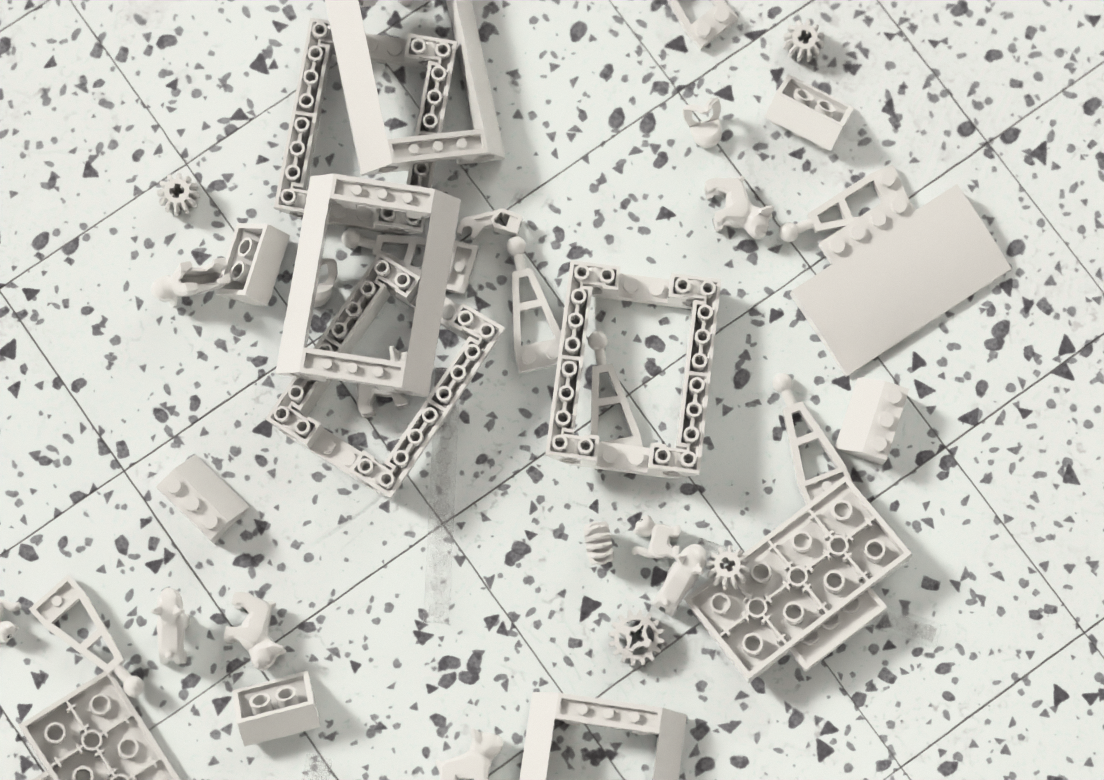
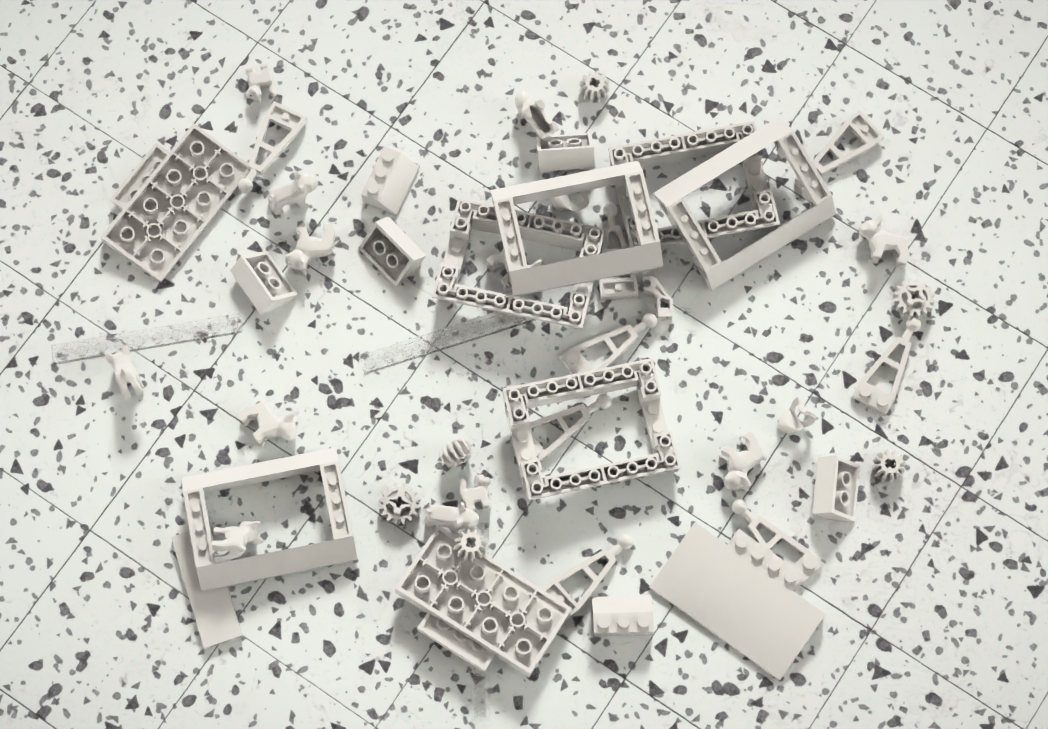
camera: 75 degrees right, 5 degrees down
(299, 529) = (391, 251): none -> white slope

